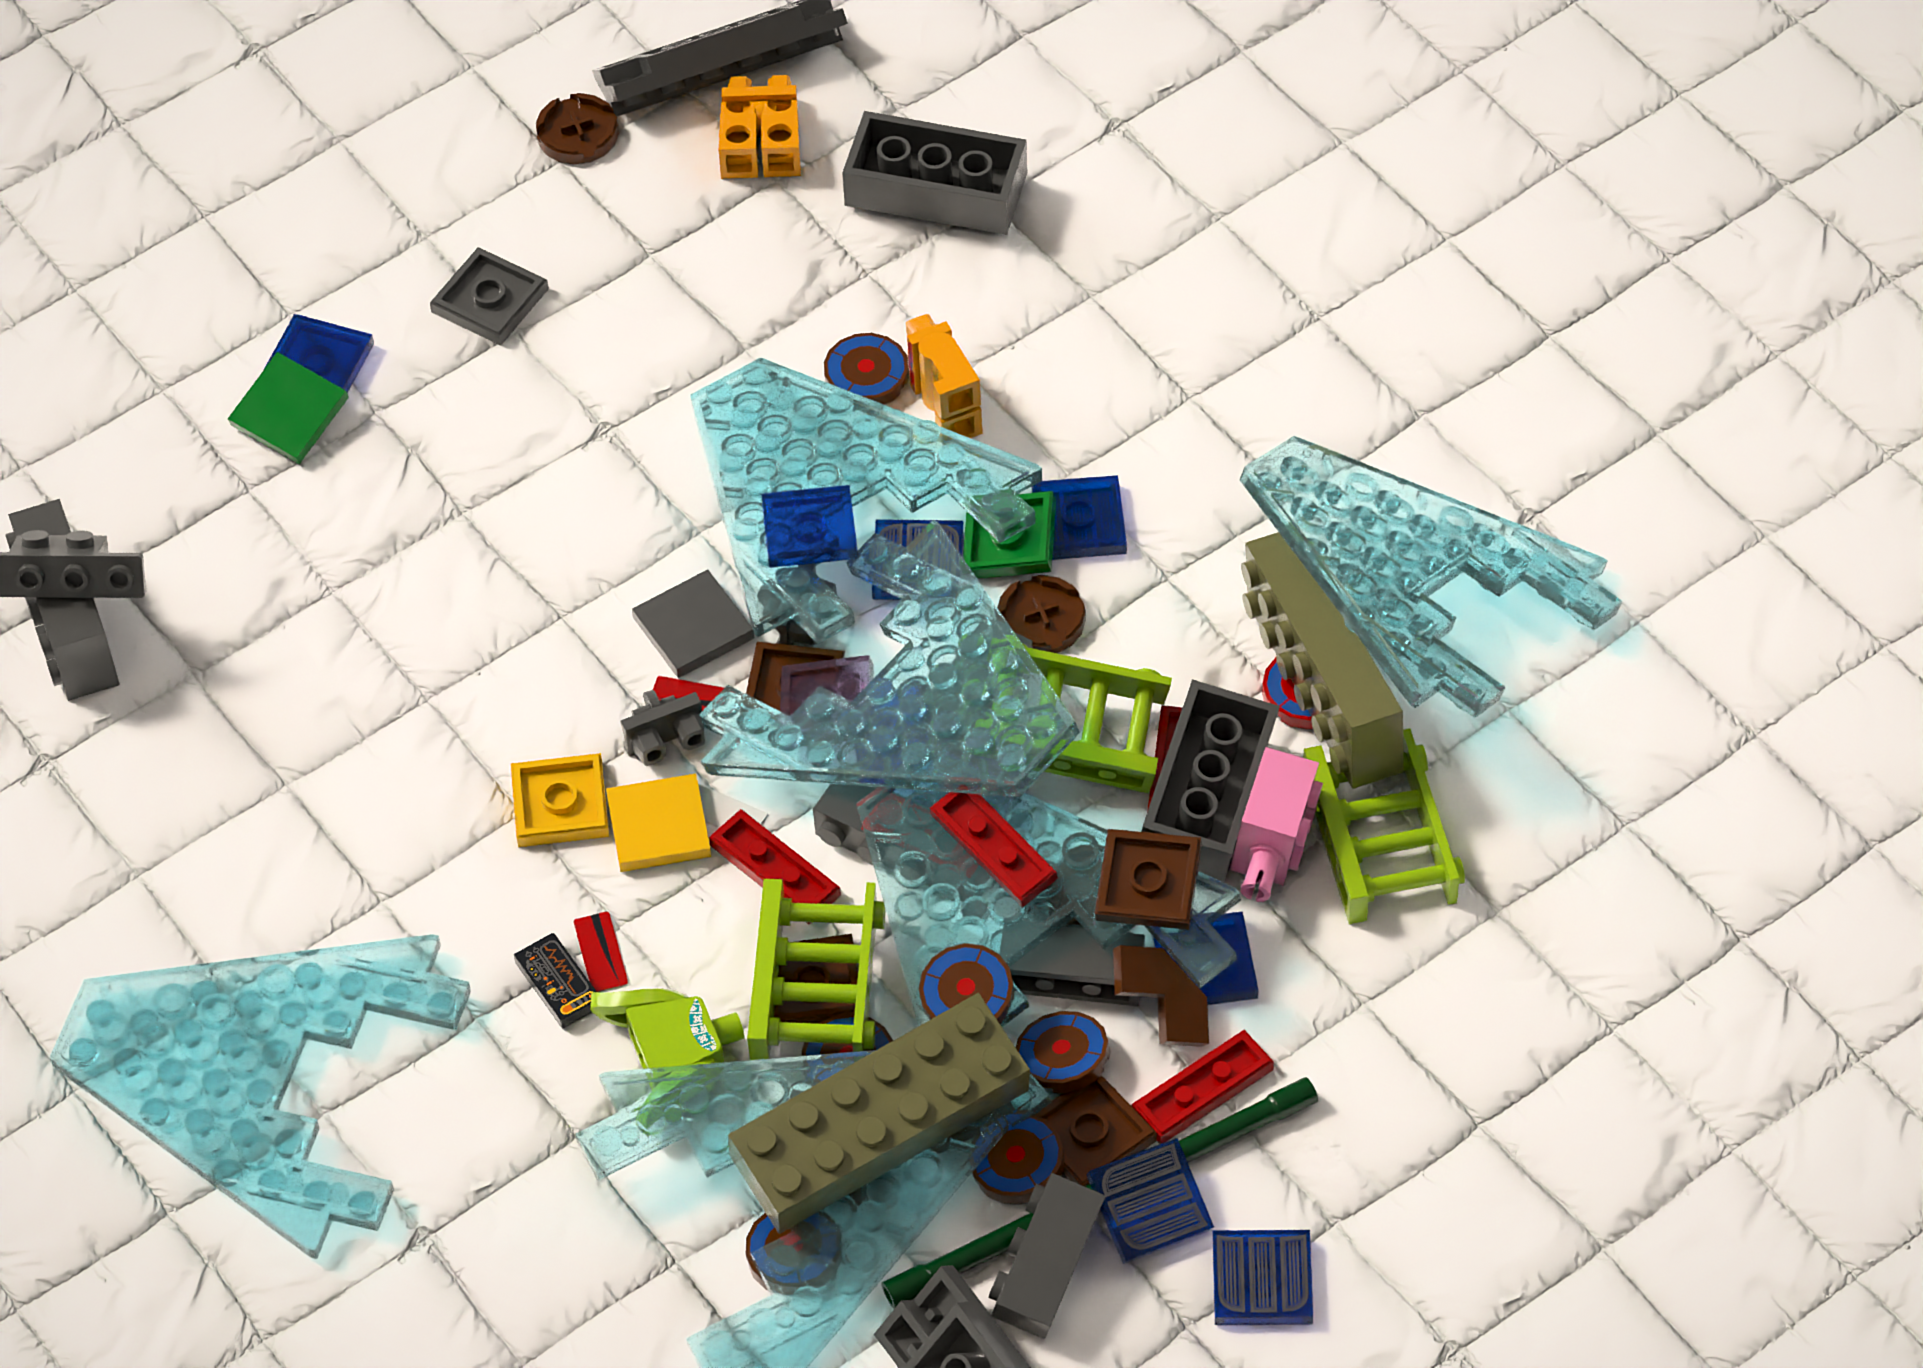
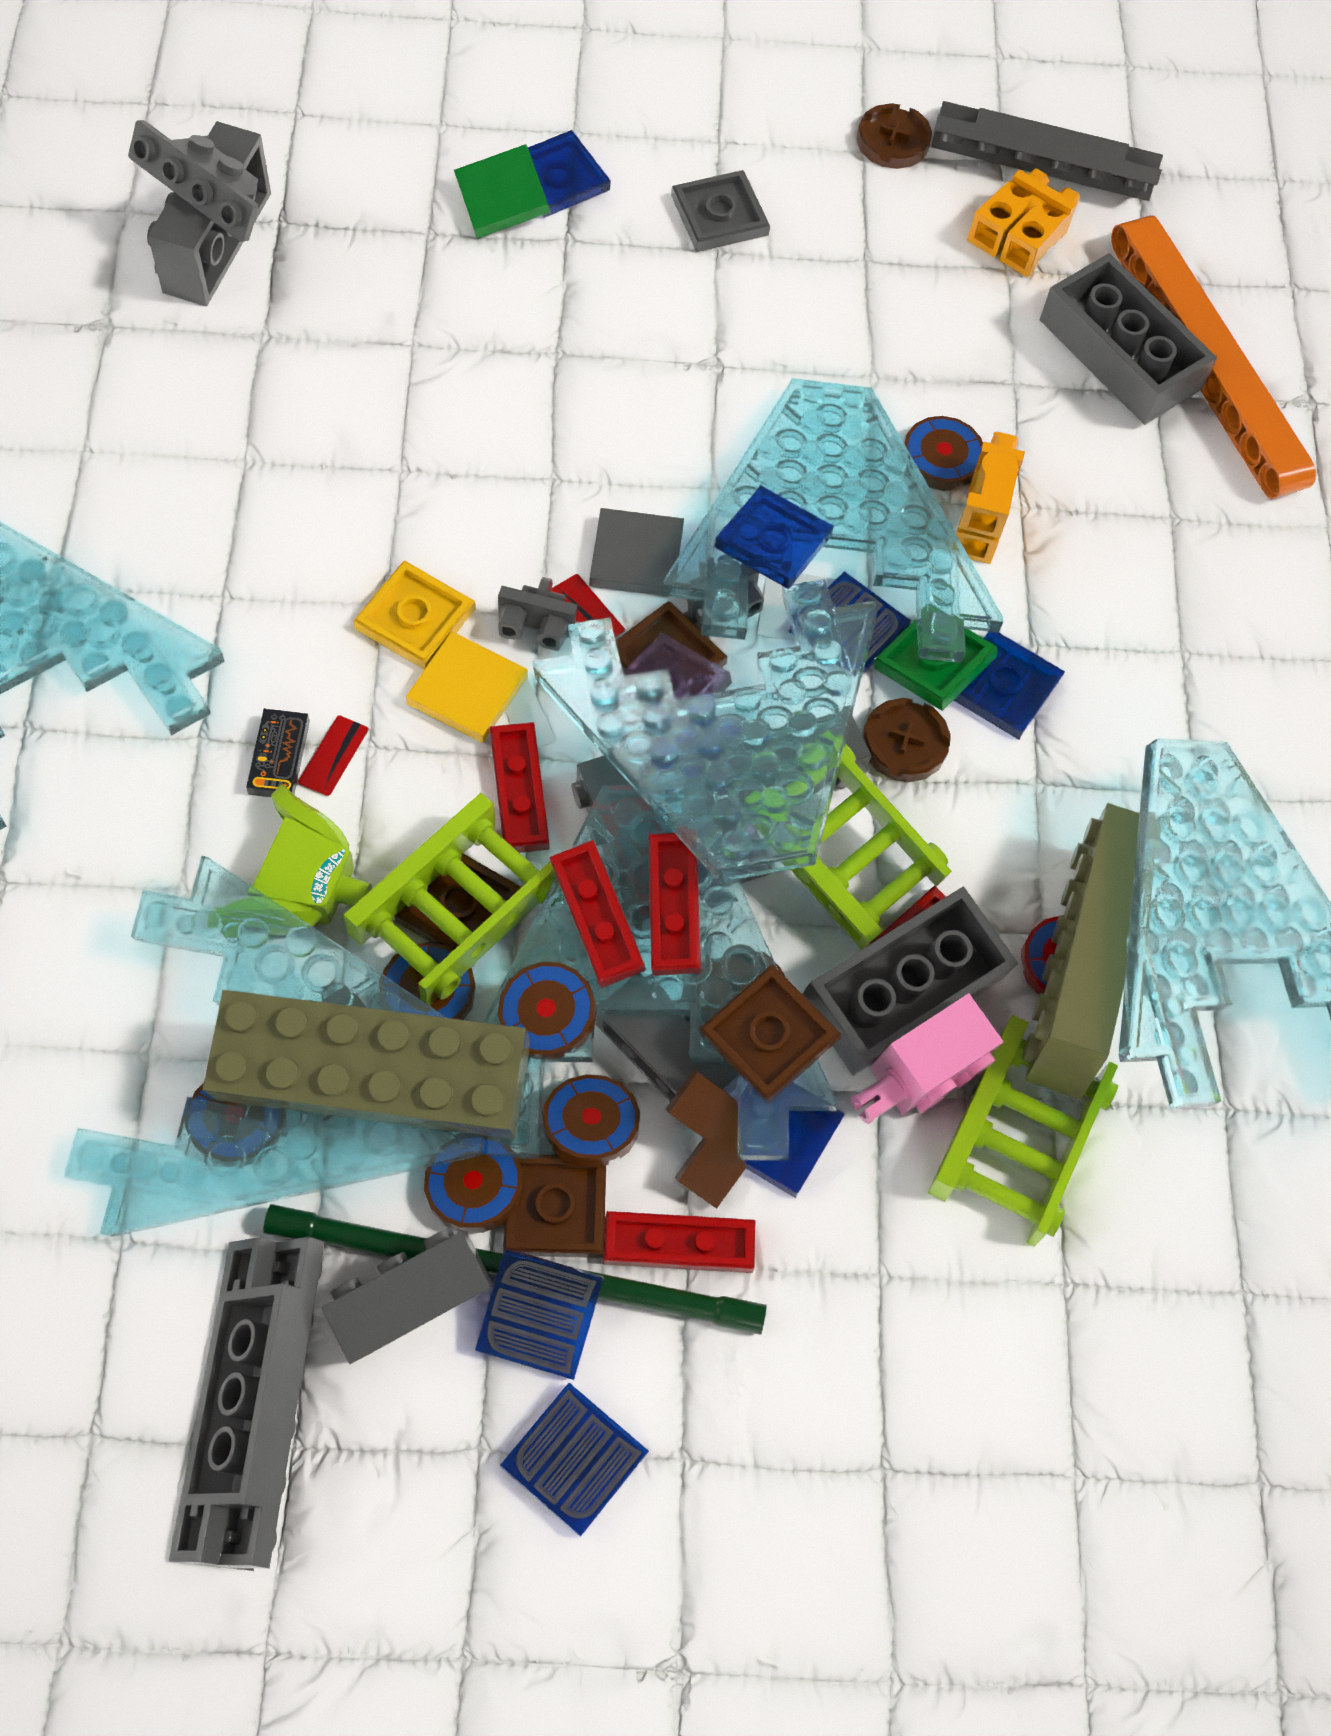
camera: 30 degrees right, 10 degrees up
(940, 895) = (597, 914): none -> red tile
(1052, 153) = (1233, 385): none -> orange beam

